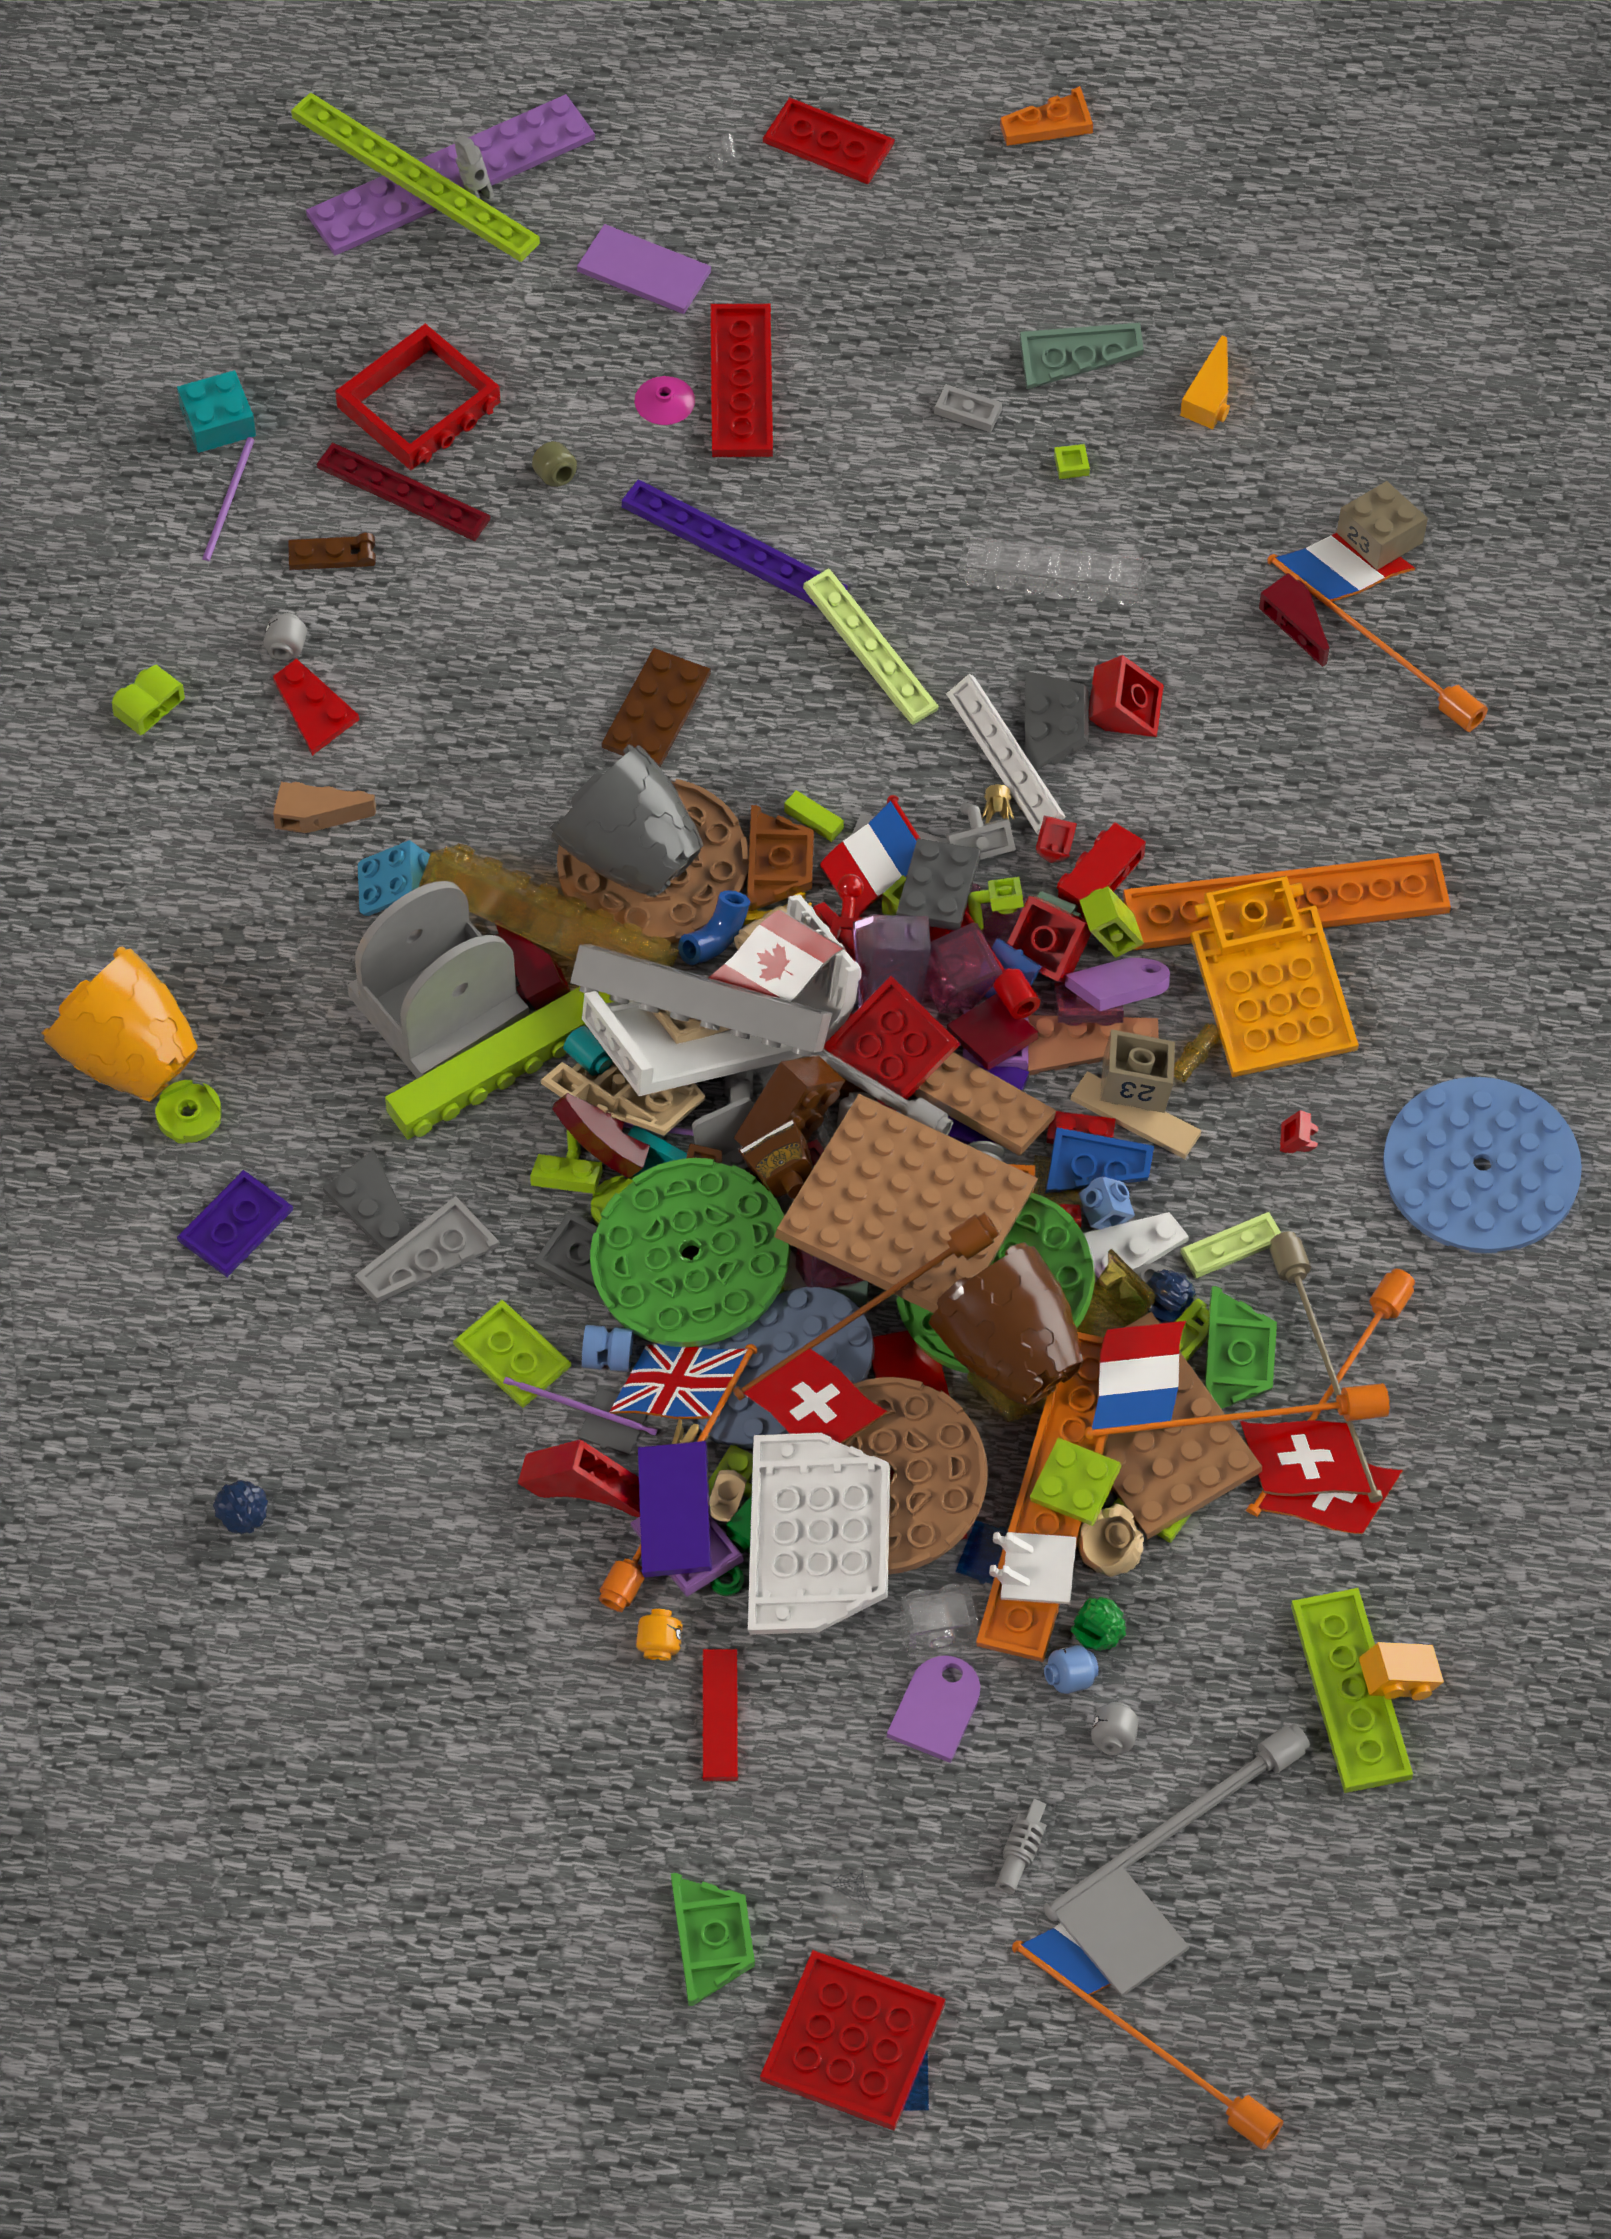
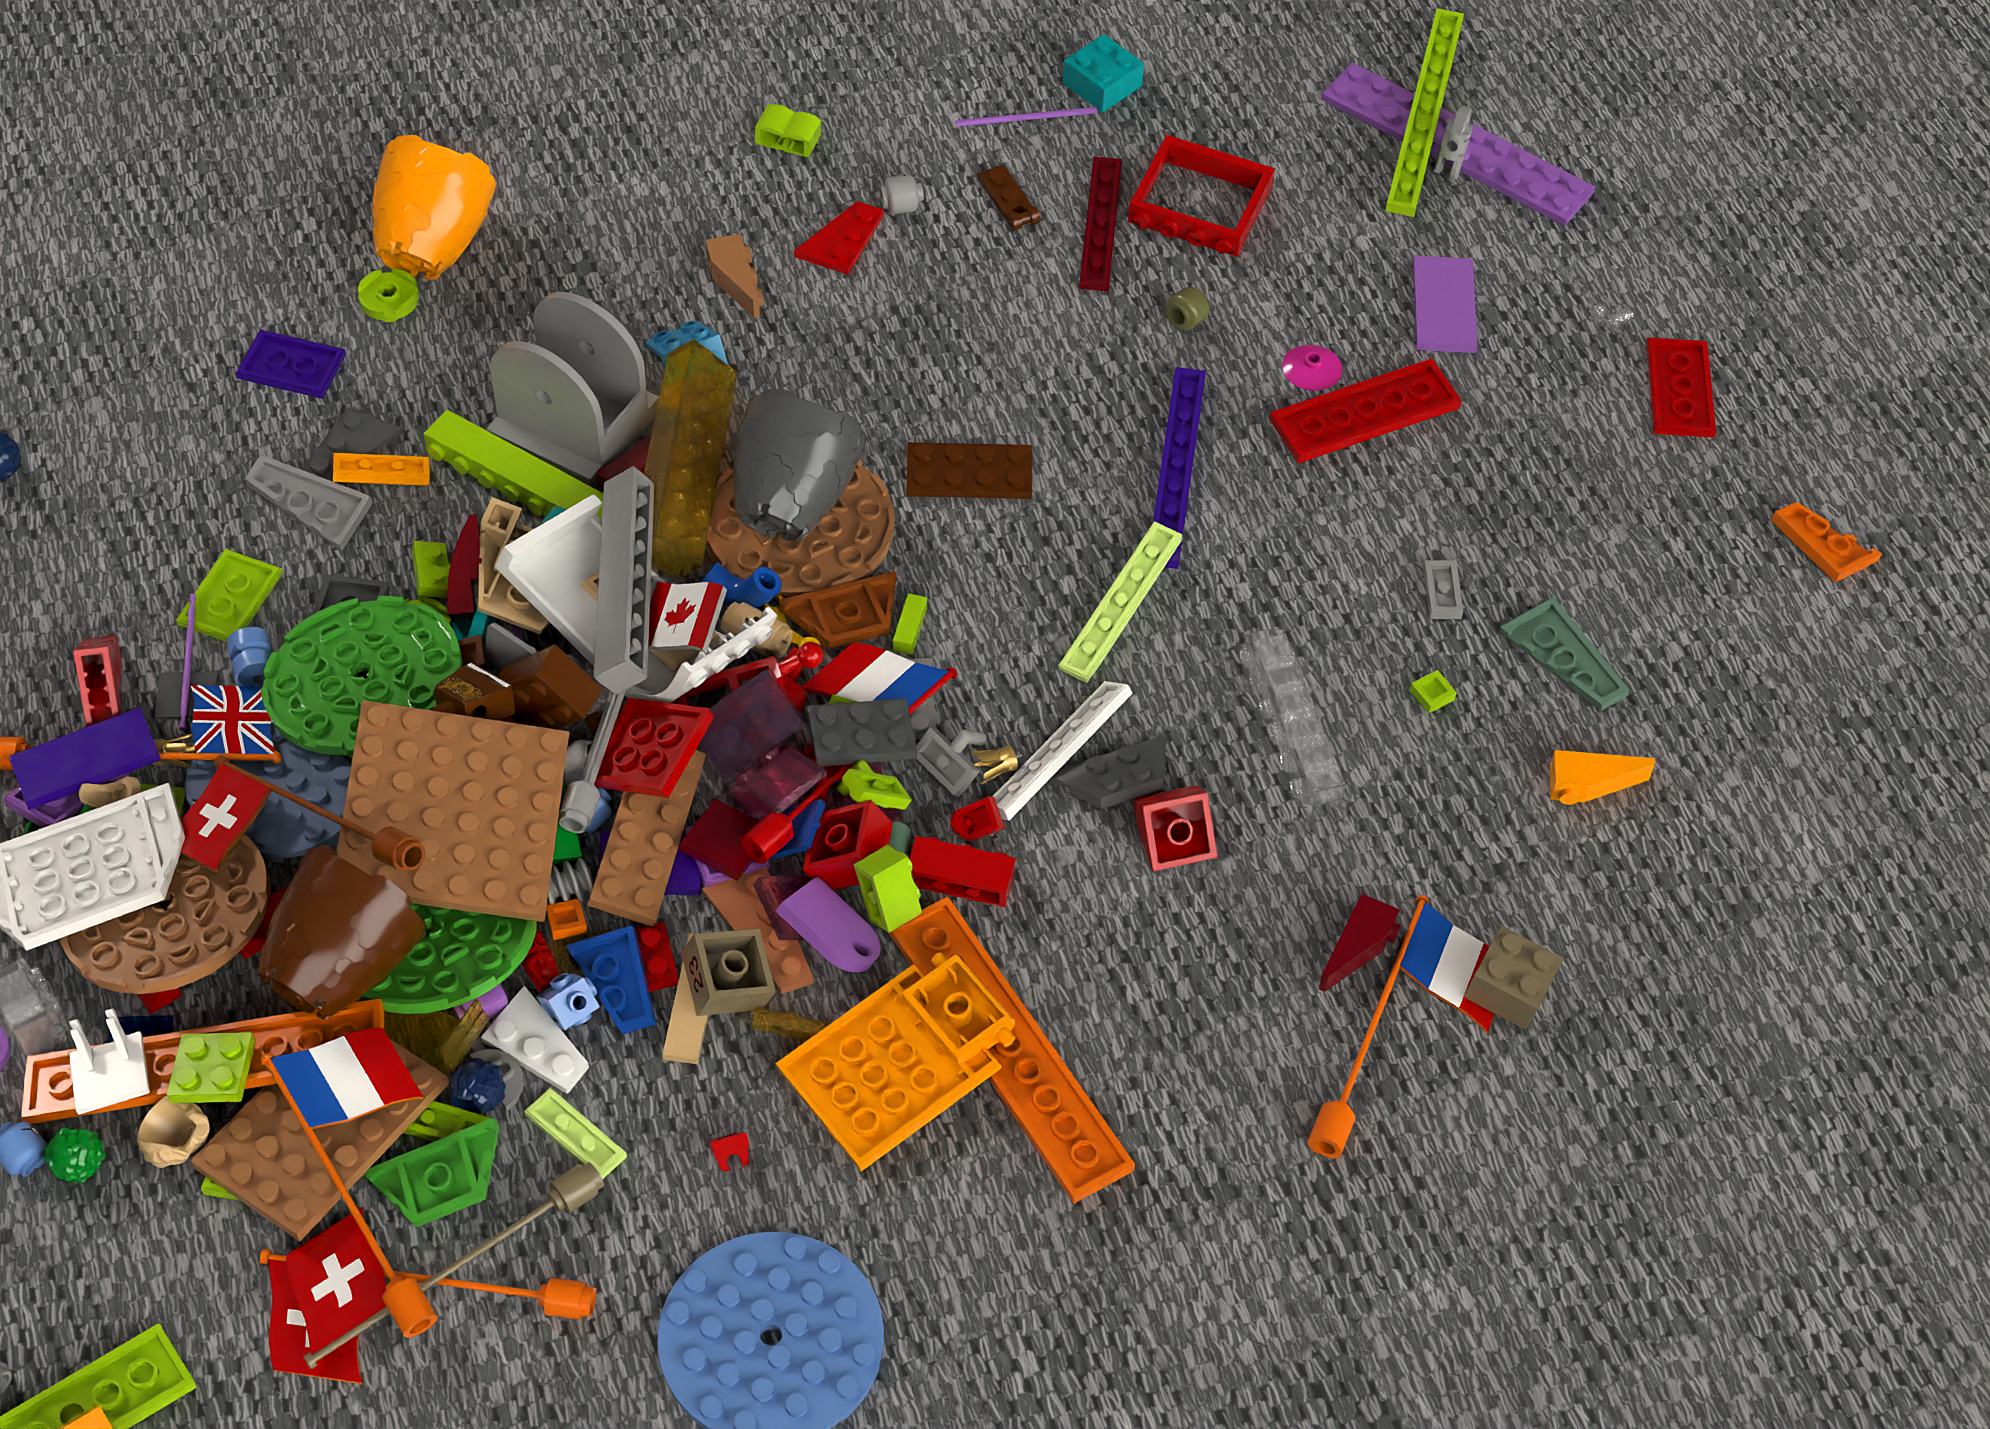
camera: 65 degrees right, 5 degrees down
(421, 1180) = (381, 469): none -> light orange tile

